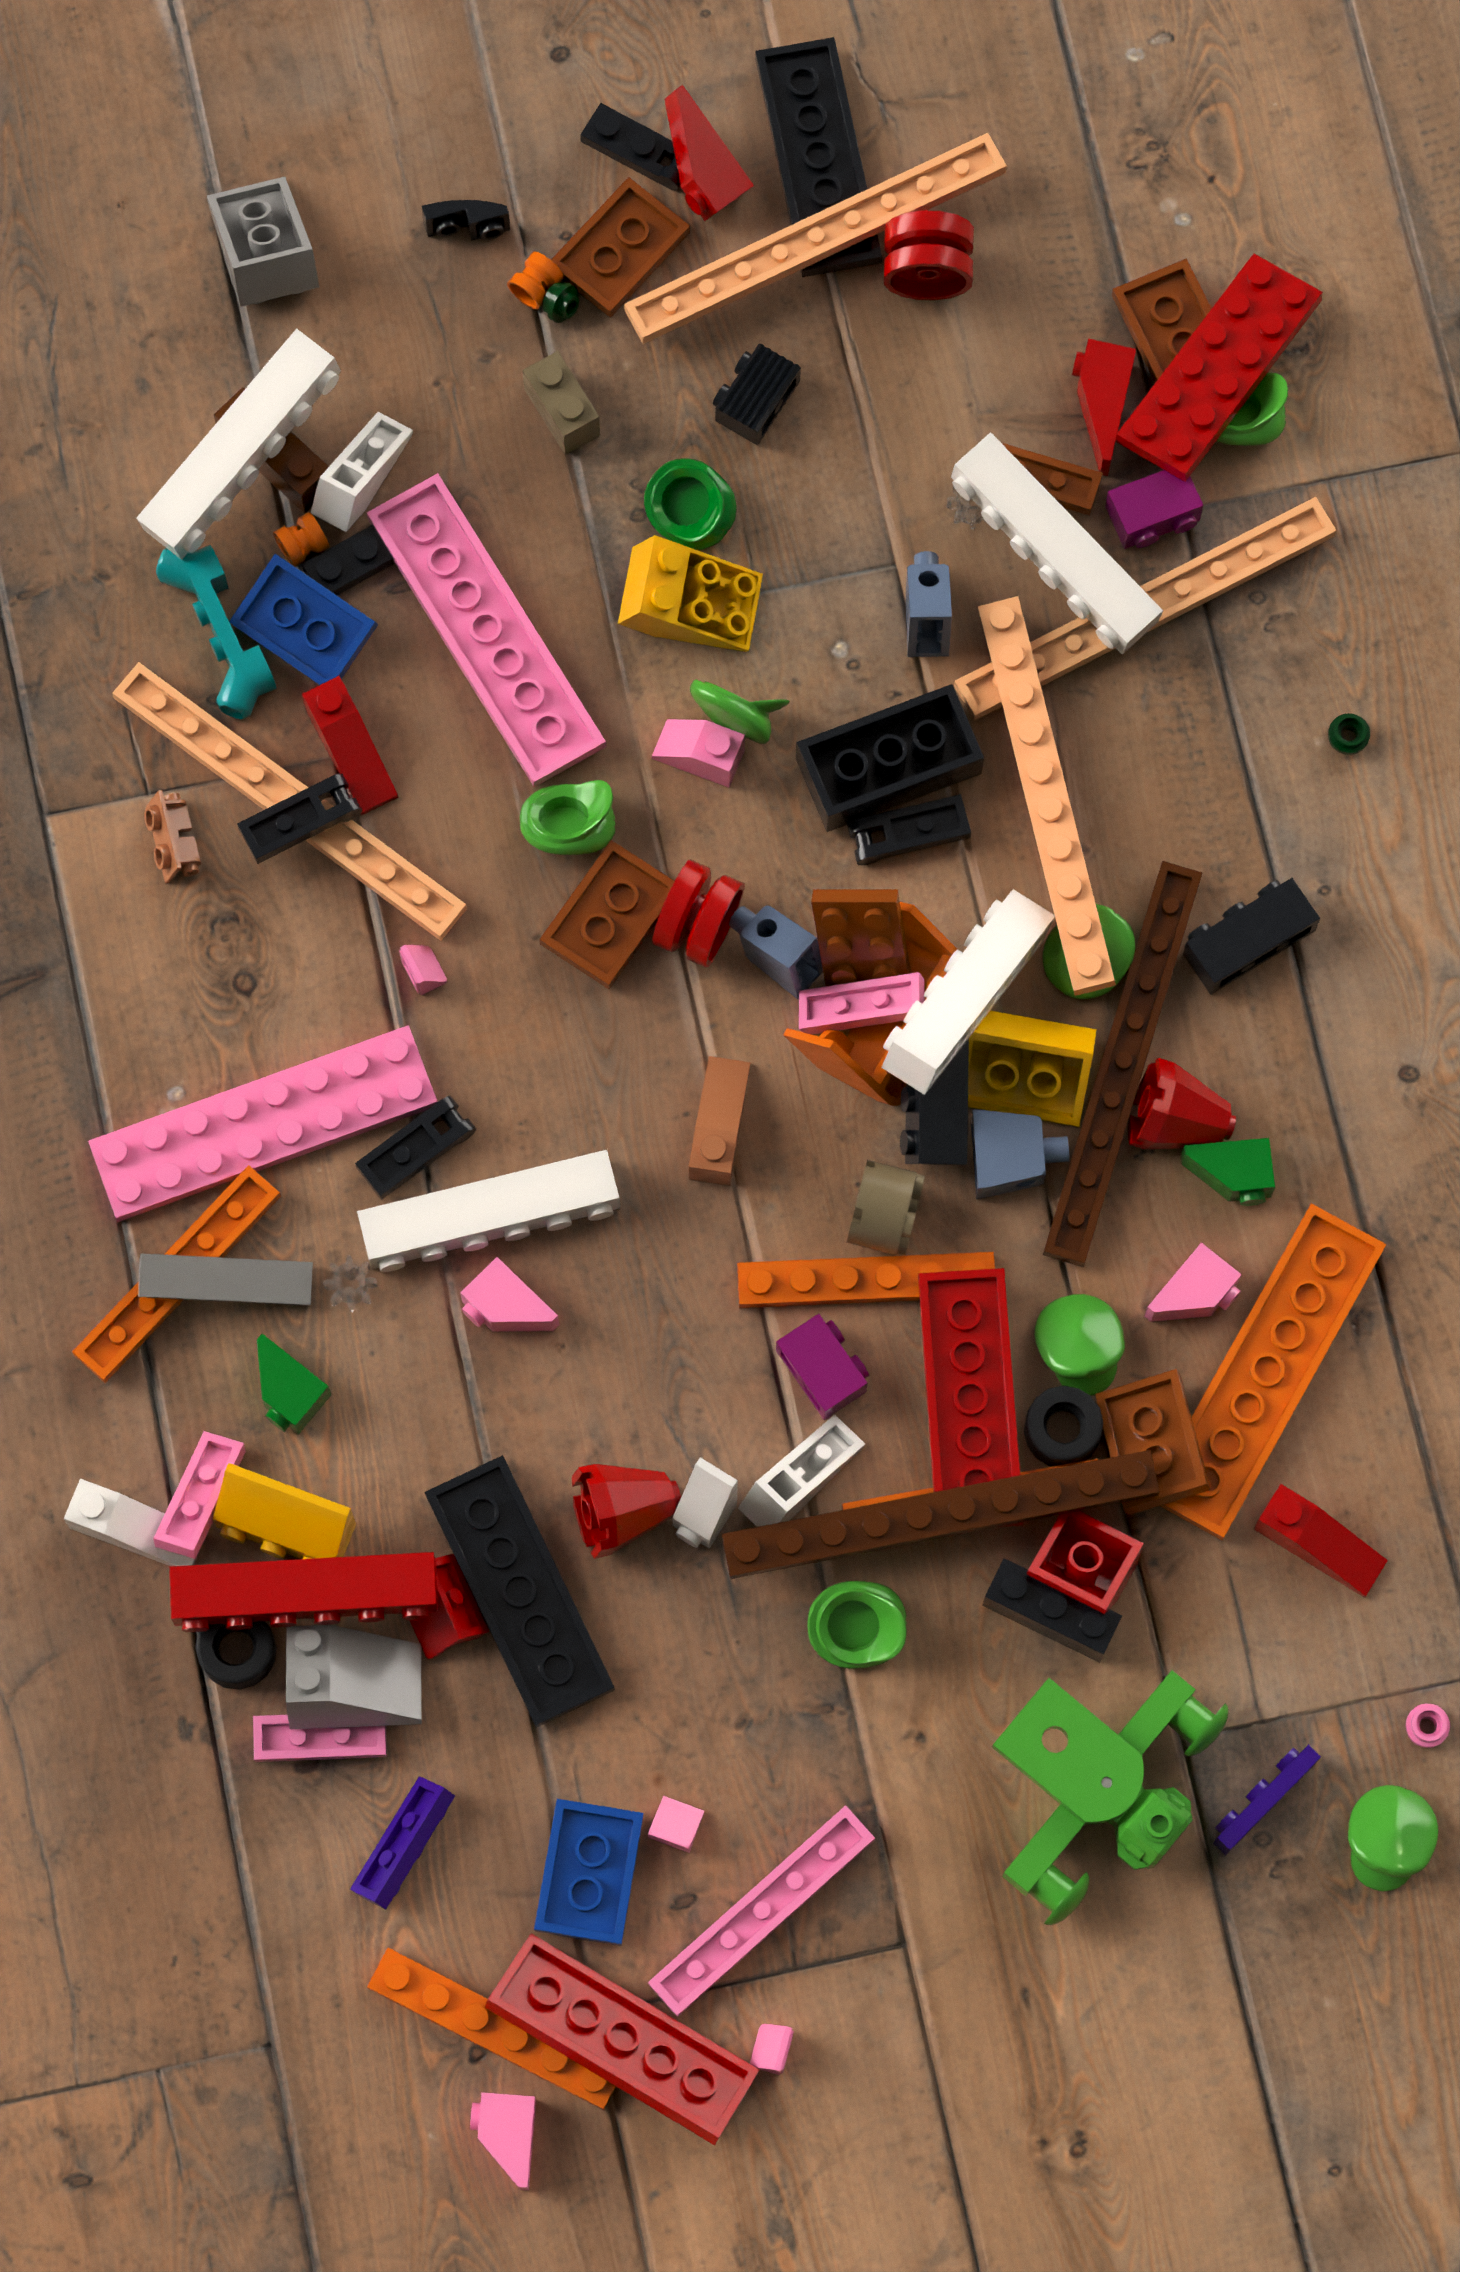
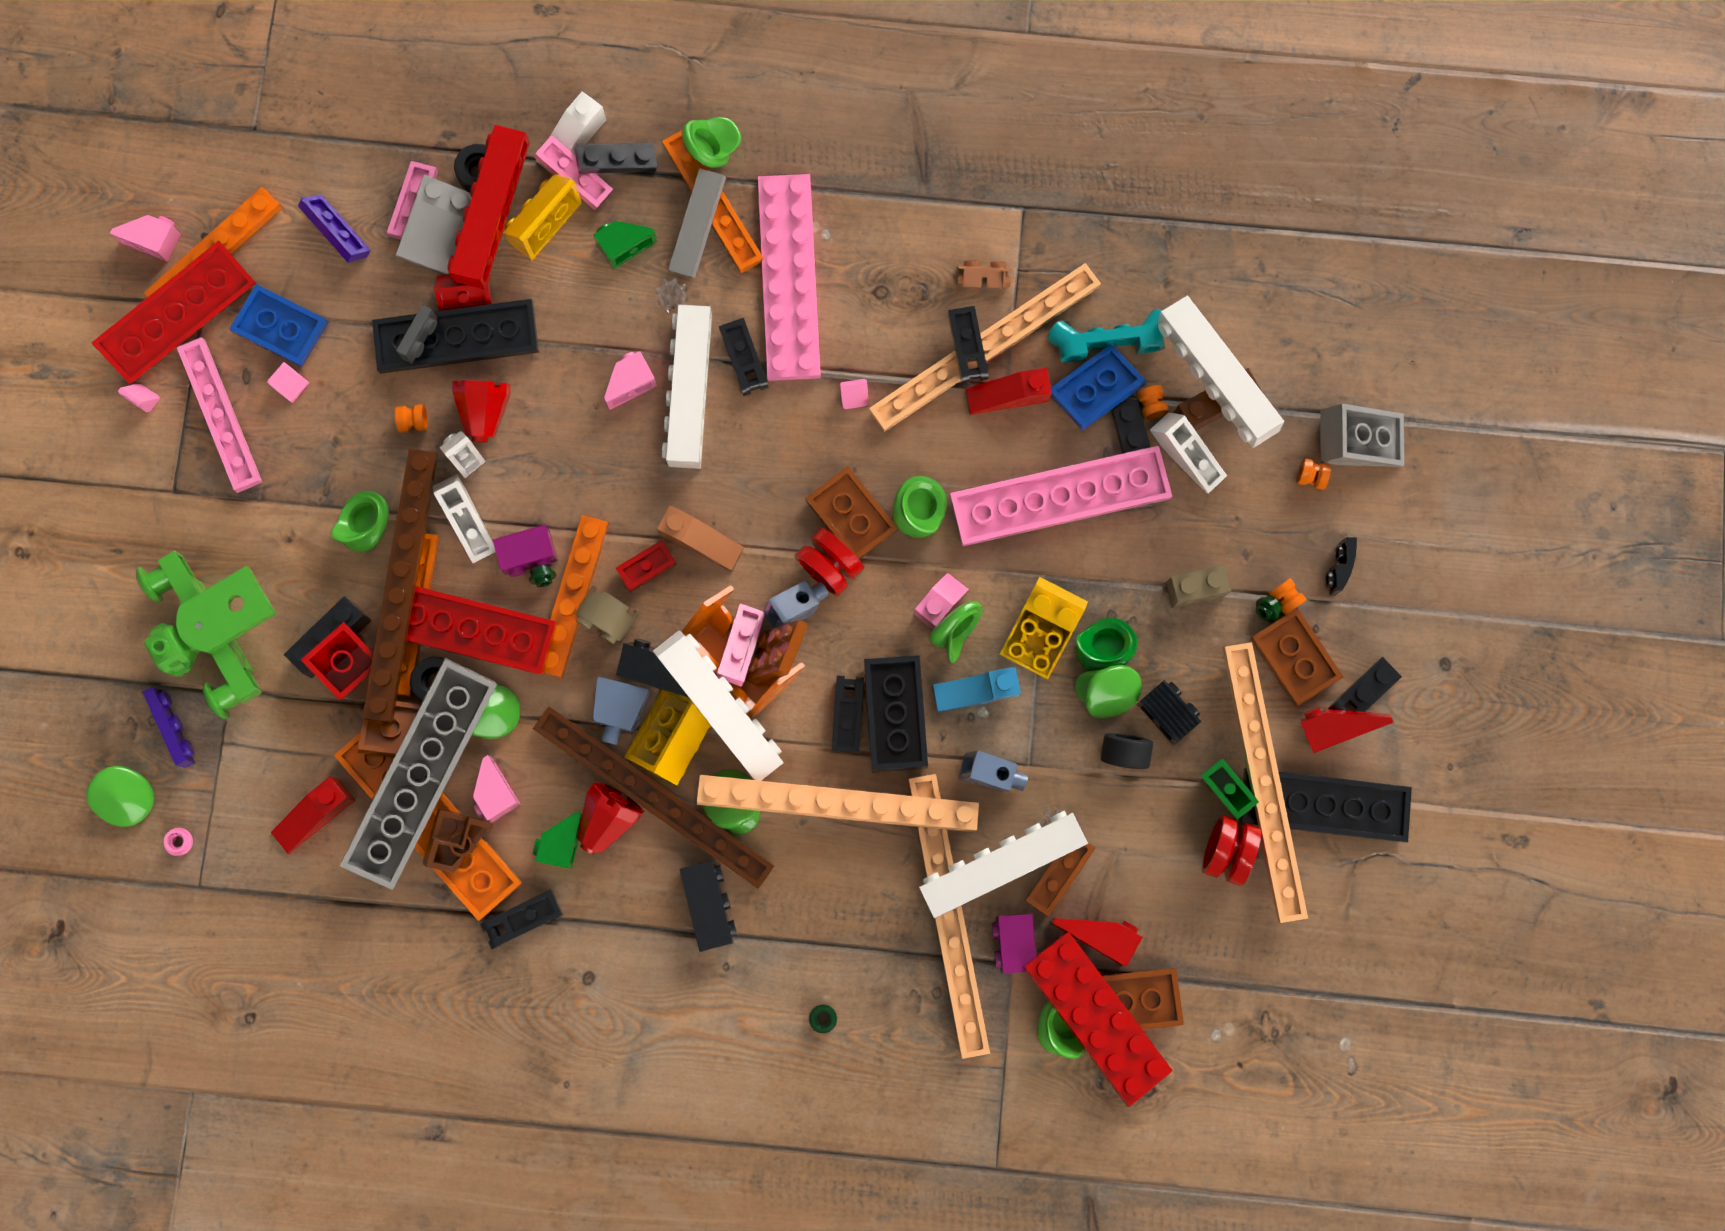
camera: 105 degrees right, 5 degrees up
(84, 1295) = (711, 140): none -> bright green piece
(154, 1439) = (615, 158): none -> black plate
(340, 293) = (1313, 474): none -> orange wheel
(523, 1631) = (413, 341): none -> dark grey plate
(673, 1611) = (411, 418): none -> orange wheel
(755, 482) = (1109, 690): none -> bright green piece
(786, 1184) = (646, 566): none -> red plate
(813, 660) = (977, 690): none -> dark azure slope
(834, 432) = (1126, 751): none -> black tyre
(842, 281) = (1229, 788): none -> green slope
(853, 1328) = (542, 576): none -> dark green plate
(1210, 1380) = (418, 774): none -> light grey brick
(1286, 1316) = (452, 839): none -> reddish brown slope
(1361, 1187) = (522, 919): none -> black plate

